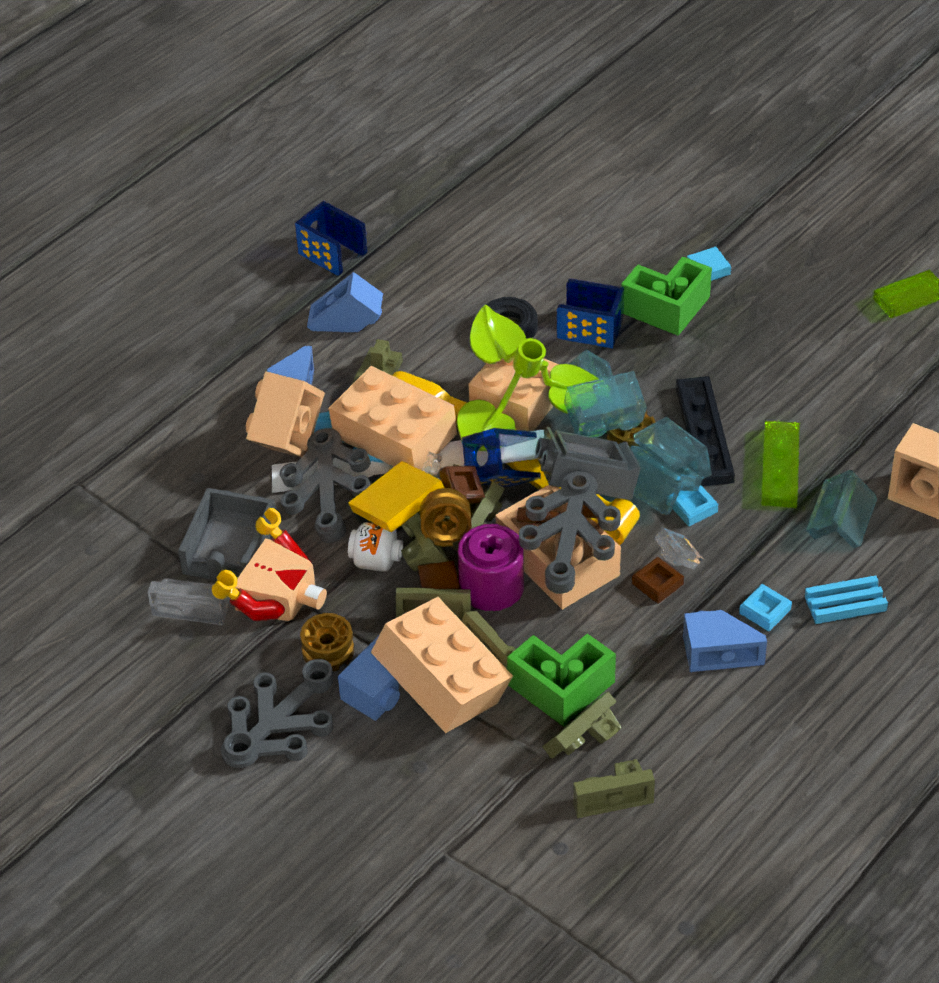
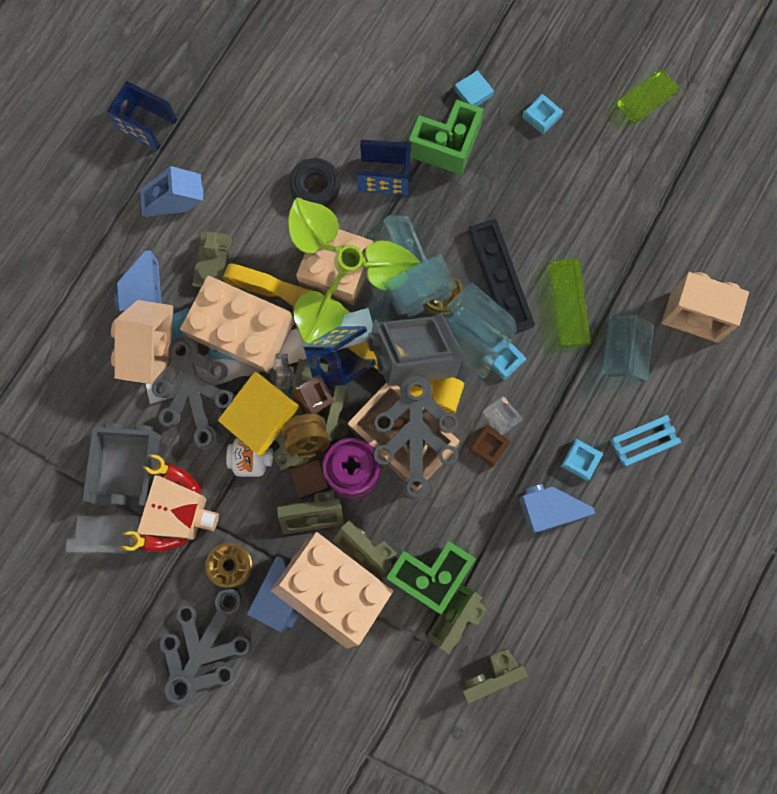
camera: 10 degrees left, 30 degrees up
(783, 295) = (542, 114): none -> medium azure tile

